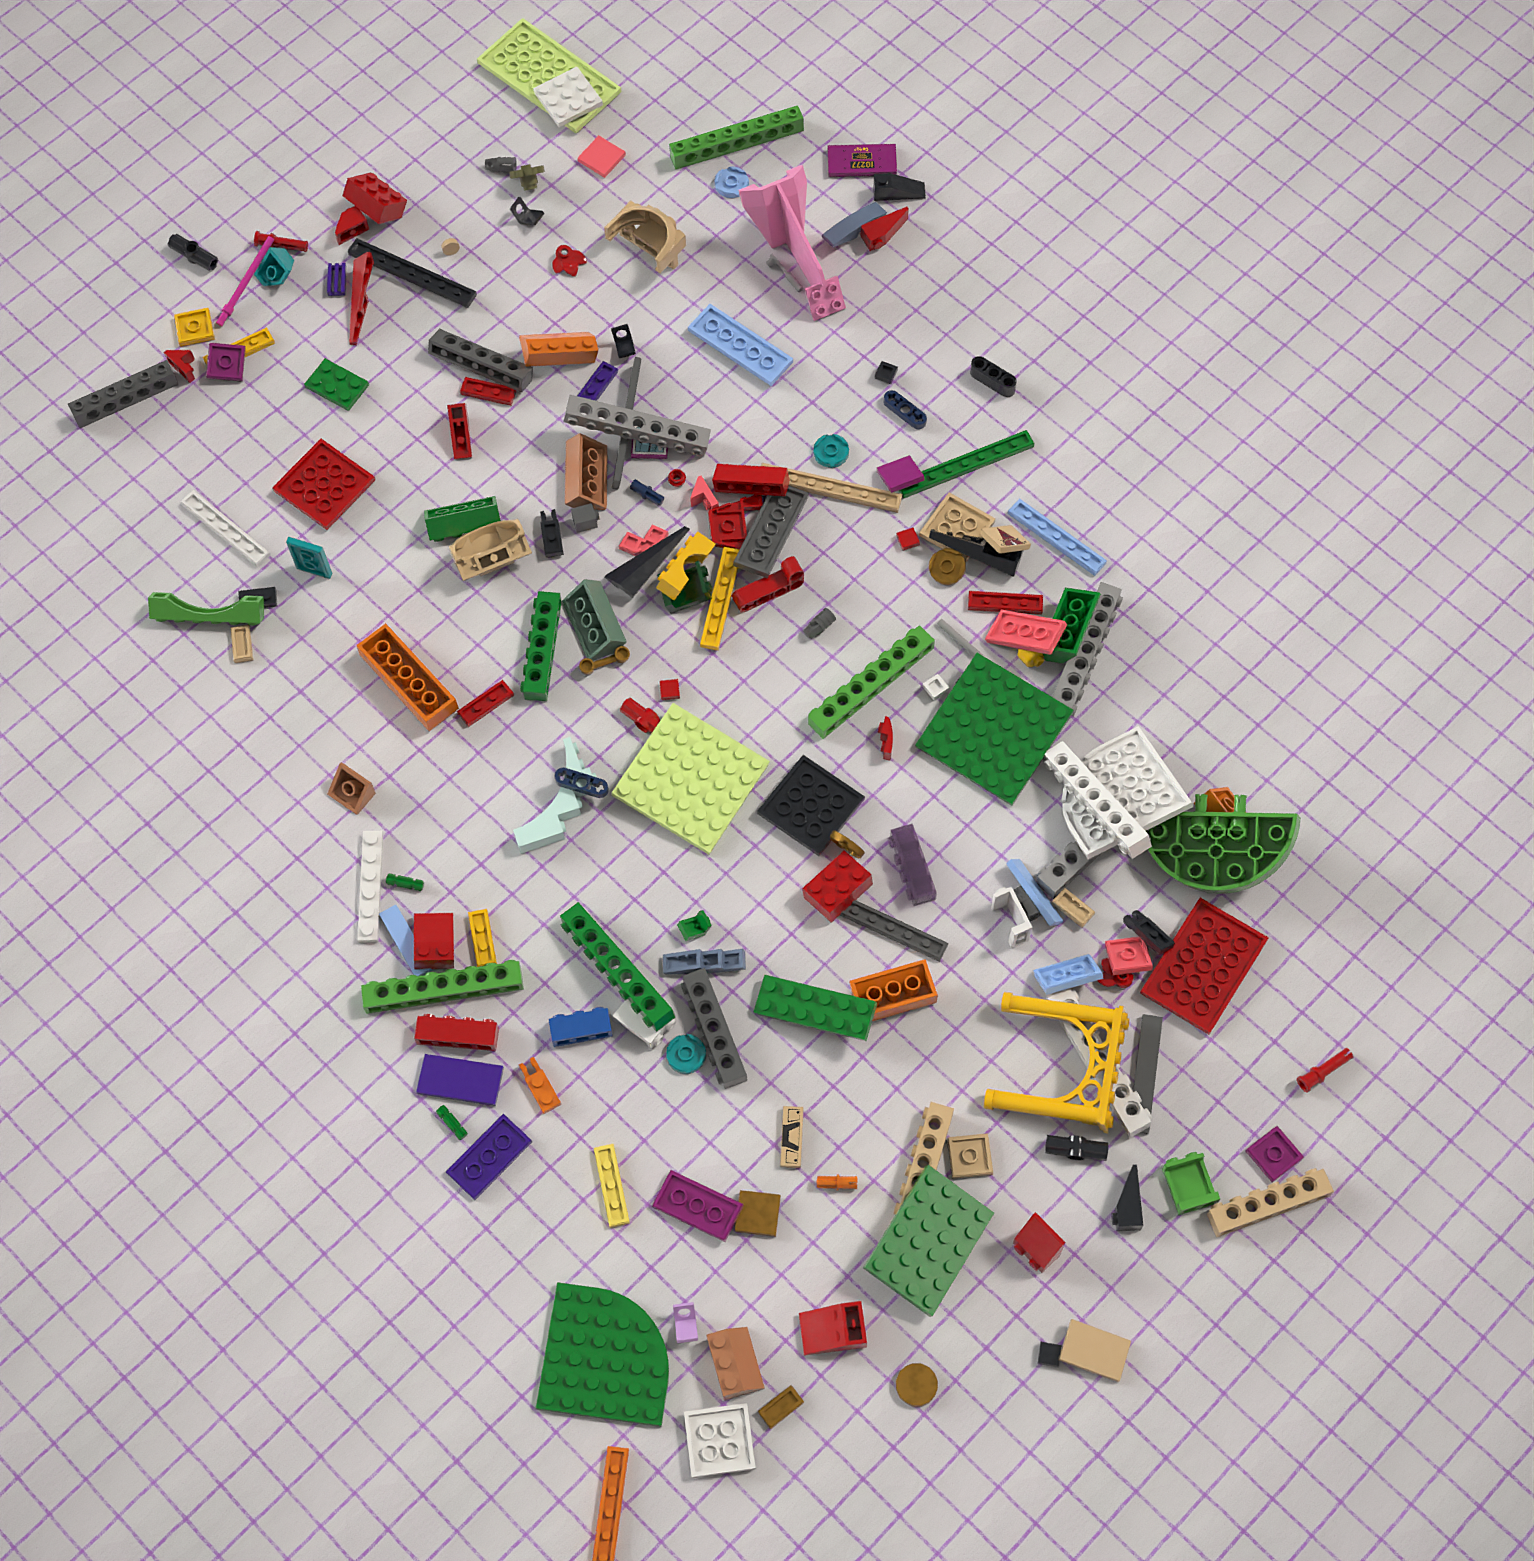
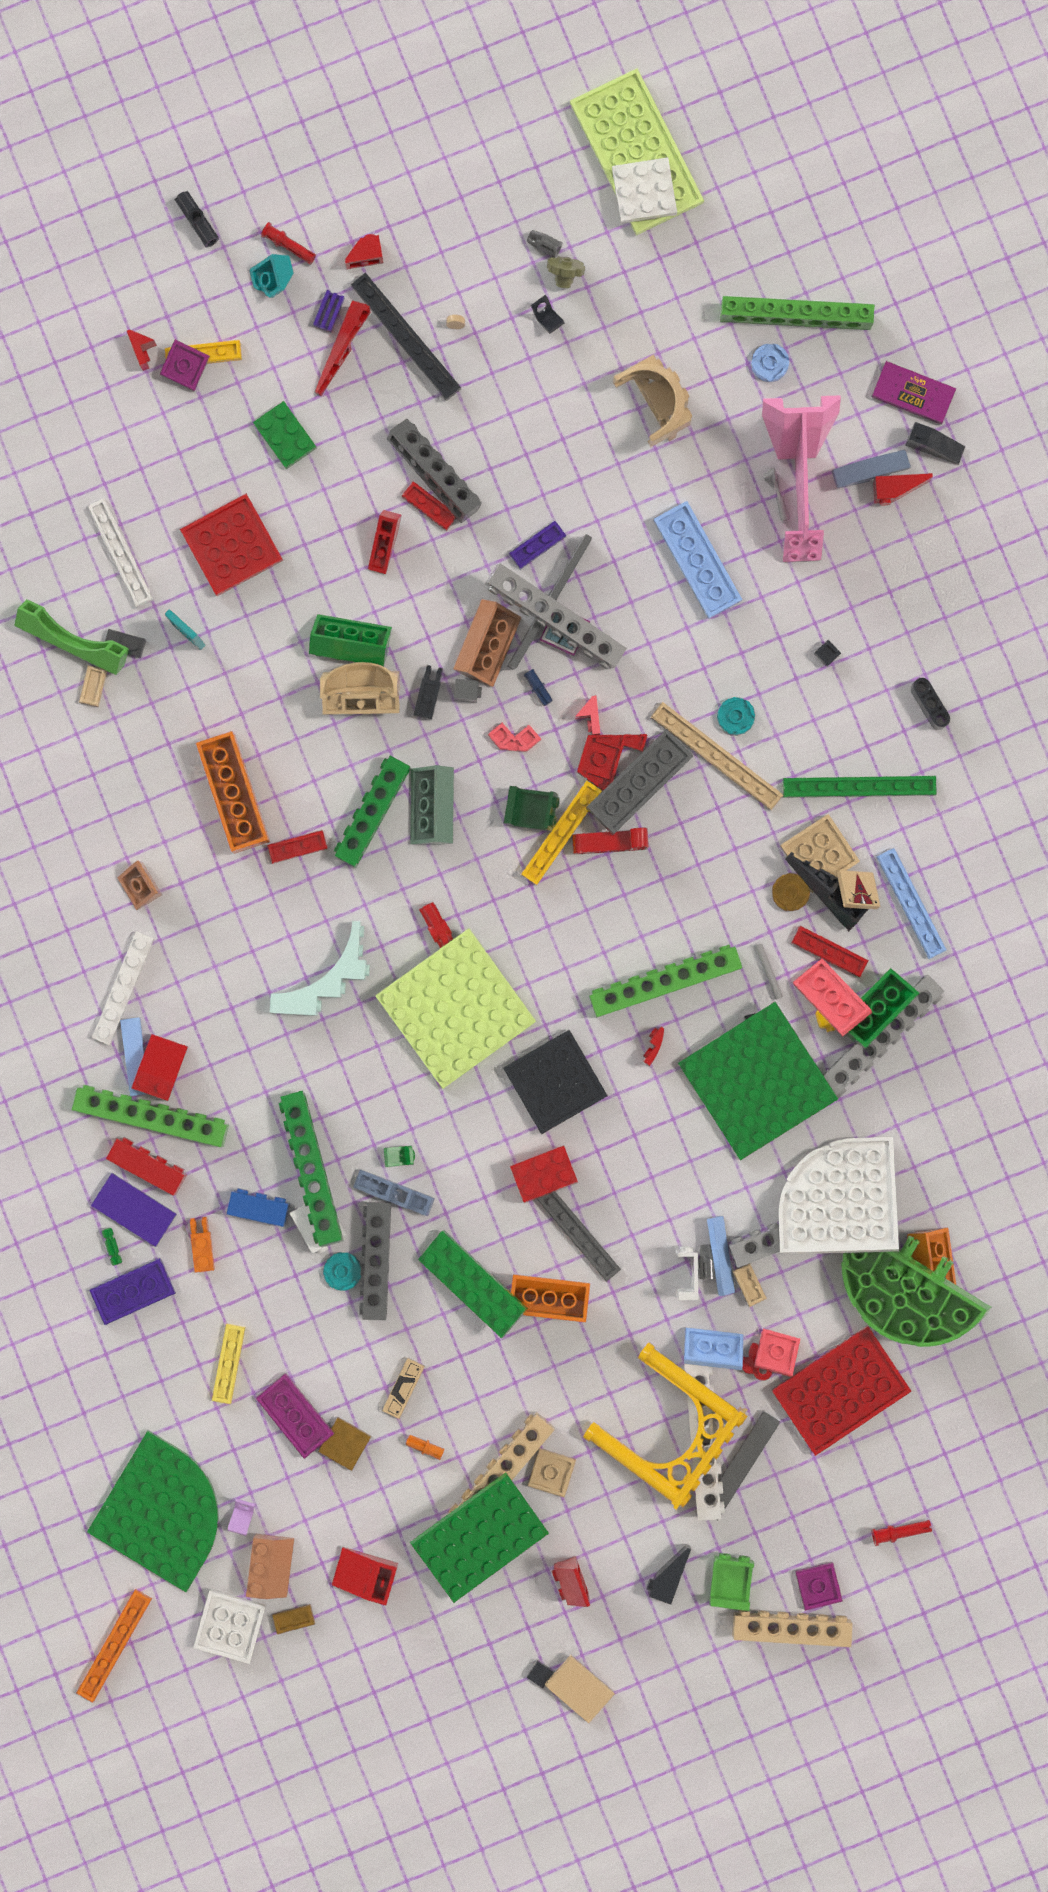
camera: 25 degrees right, 20 degrees up
(123, 394) = (72, 360): dark grey brick -> none
(194, 327) = (168, 307): yellow tile -> none
(228, 308) = (208, 302): dark pink bar -> none
(374, 197) = (399, 234): red brick -> none
(404, 882) = (155, 998): green axle -> none
(482, 937) = (204, 1083): yellow tile -> none
(559, 348) = (516, 489): orange slope -> none
(566, 783) = (336, 969): dark blue beam -> none
(568, 262) = (567, 390): red plate -> none
(601, 156) = (651, 275): coral tile -> none
(621, 656) = (406, 851): pearl gold bar -> none
(625, 344) = (583, 510): black bracket -> none
(636, 572) = (494, 770): black wedge -> none
(669, 689) = (474, 906): red tile -> none
(675, 579) = (522, 802): yellow arch -> none
(676, 473) = (575, 677): red plate -> none
(751, 479) = (642, 720): red brick -> none
(819, 623) = (642, 900): dark grey hinge -> none
(847, 844) = (568, 1136): pearl gold tile -> none
(900, 474) = (790, 773): magenta tile -> none
(903, 402) = (838, 713): dark blue beam -> none
(907, 539) = (767, 844): red tile -> none
(912, 864) = (622, 1181): clear purple brick -> none
(916, 1384) = (416, 1650): pearl gold tile -> none
(935, 687) = (723, 1012): white plate -> none
(1076, 1147) = (647, 1507): black piece -> none
(1097, 800) = (807, 1134): white brick -> none
(1149, 932) = (805, 1340): black hinge -> none

